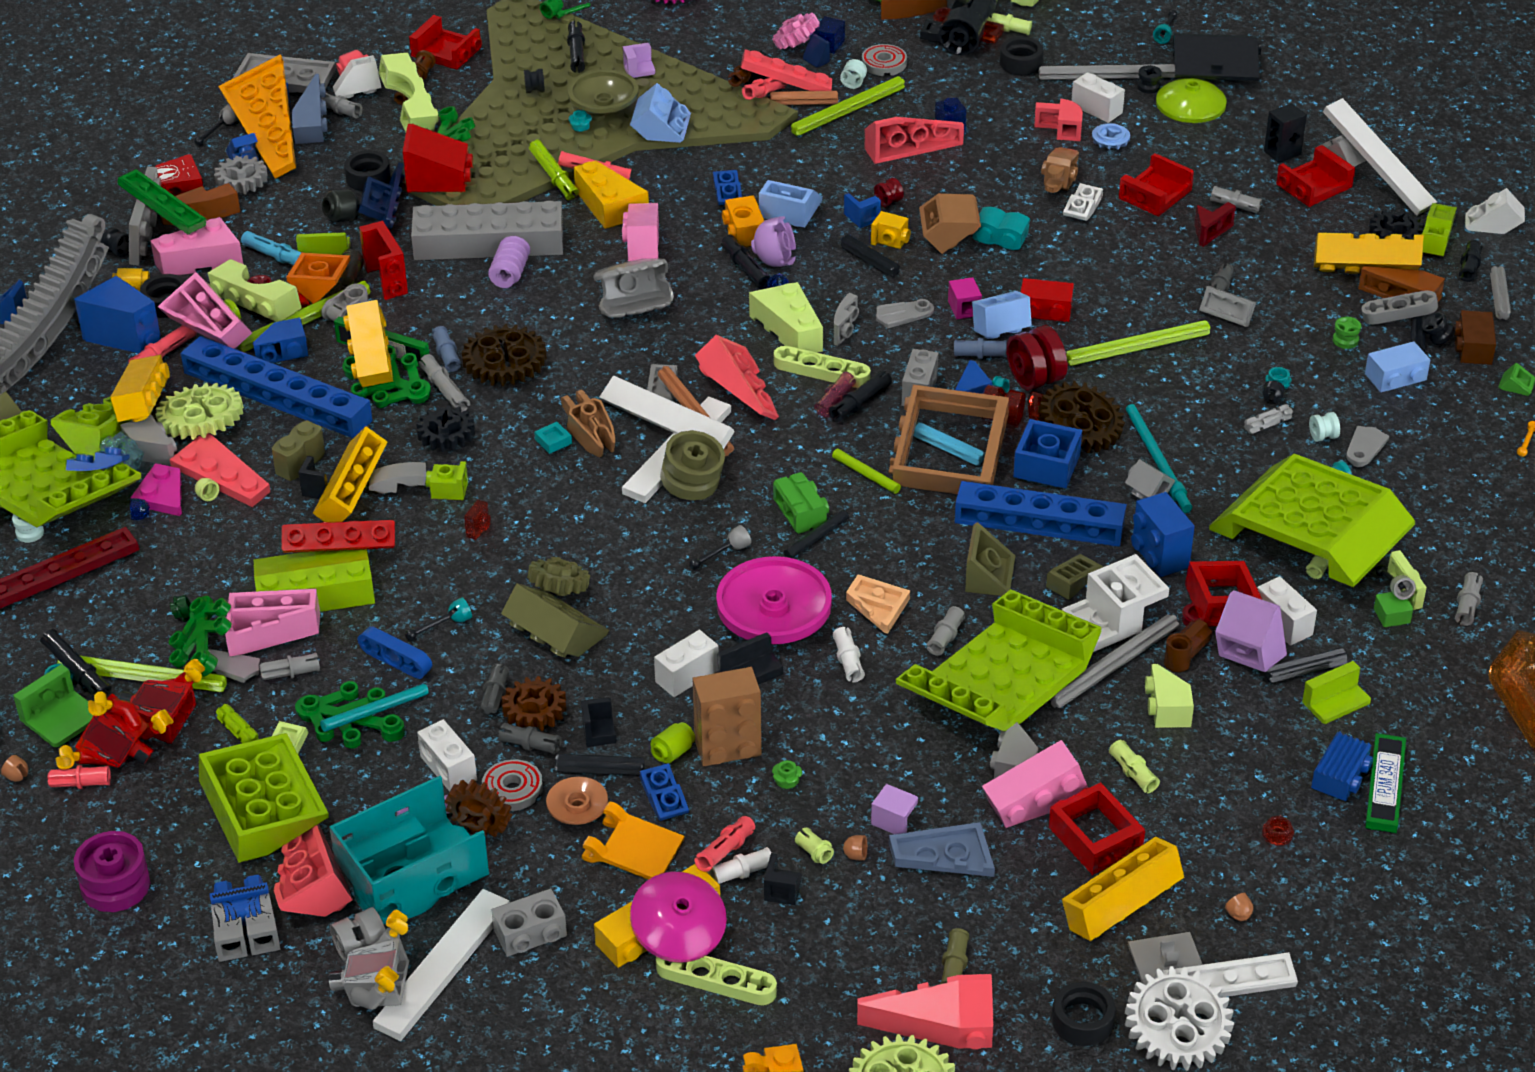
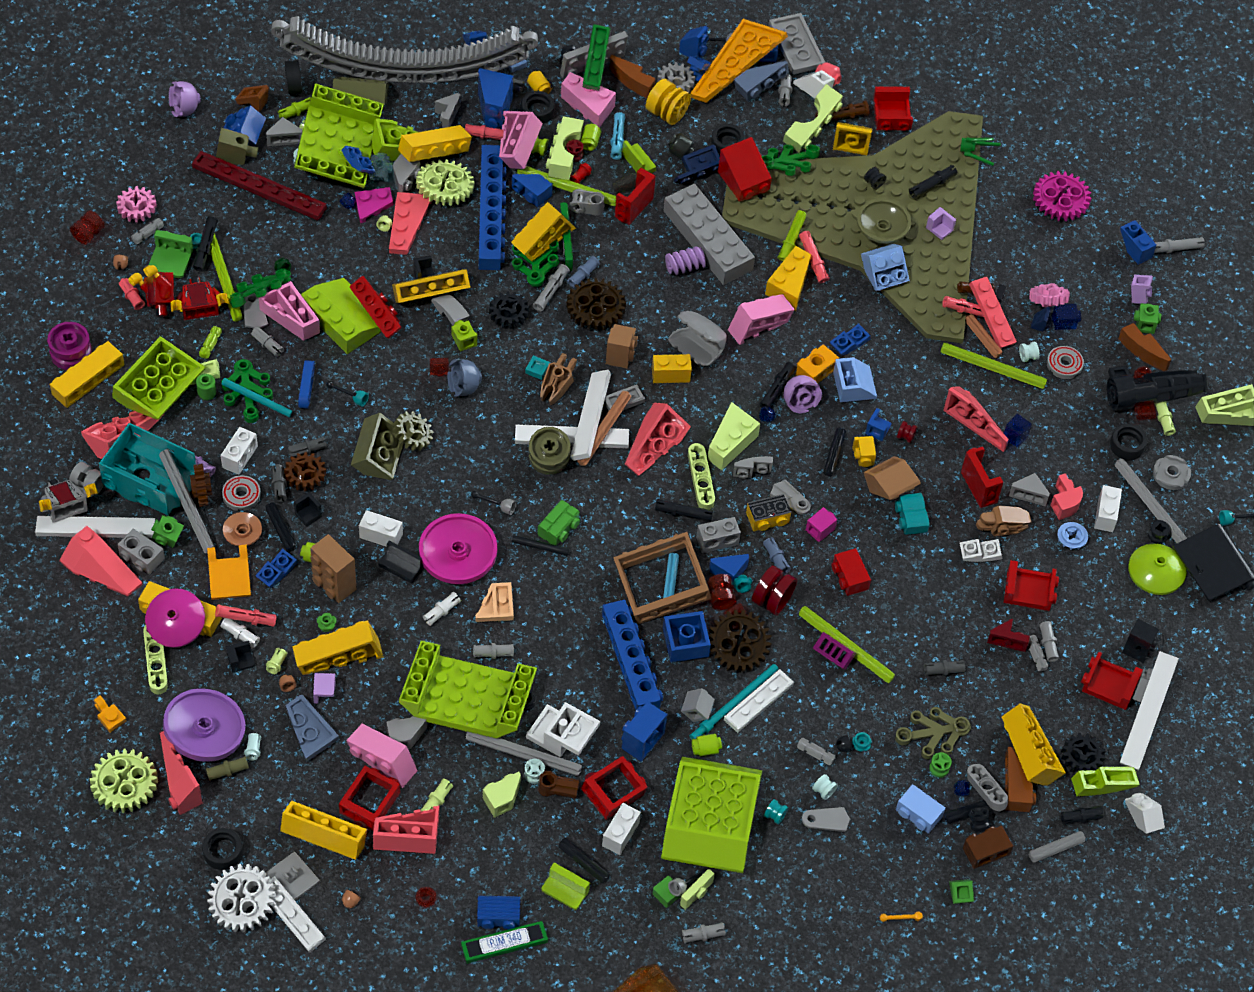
camera: 55 degrees right, 15 degrees up
(91, 366) = (448, 109): none -> light grey slope
(176, 874) = (87, 374): none -> yellow brick
(179, 175) = (648, 51): red torso -> none
(206, 138) = (694, 42): none -> blue slope
(239, 908) = (71, 420): hips -> none
(255, 265) = (590, 136): none -> lime brick
(271, 185) = (668, 101): none -> yellow wheel
(292, 450) = (441, 248): olive brick -> none
(314, 750) = (206, 386): none -> bright green brick
(317, 274) = (599, 169): orange slope -> none
(459, 79) = (852, 138): none -> yellow slope
(493, 835) = (186, 500): none -> light grey axle
(503, 978) = (94, 559): none -> coral wedge
(515, 501) = (463, 377): none -> sand blue cylinder
(521, 876) = (166, 531): none -> bright green brick
(580, 120) = (851, 227): teal plate -> none
(586, 352) = (621, 346): none -> medium nougat brick
(653, 328) = (671, 368): none -> yellow brick
(835, 393) = (677, 495): clear pink pin -> none
(844, 769) = (338, 648): none -> yellow wedge
(866, 471) = (616, 545): lime bar -> none
(873, 952) = (204, 724): none -> medium lavender dish
(918, 329) = (768, 512): none -> brick
(936, 920) = (252, 751): none -> light aqua pin
(988, 564) = (565, 647): olive slope -> none
(995, 160) = (983, 489): none -> red panel
(1001, 314) = (813, 552): light blue brick -> none
(1035, 137) = (1030, 490): none -> light grey slope
(1069, 587) = (587, 705): olive slope -> none
(1078, 47) = (1169, 481): none -> light grey tile
(1147, 654) = (533, 765): none -> light aqua wheel
(1159, 345) = (847, 658): none -> magenta slope
(1169, 438) = (758, 701): none -> white tile
(1179, 800) = (407, 832): none -> coral wedge
(1207, 498) = (706, 745): none -> lime brick
(1227, 306) = (918, 681): light grey plate -> none
(1249, 215) = (1037, 653): none -> light grey axle
(1251, 632) = (578, 816): lavender slope -> none
(1303, 302) = (935, 730): none -> olive plant
(1386, 328) = (961, 788): none -> clear blue hinge

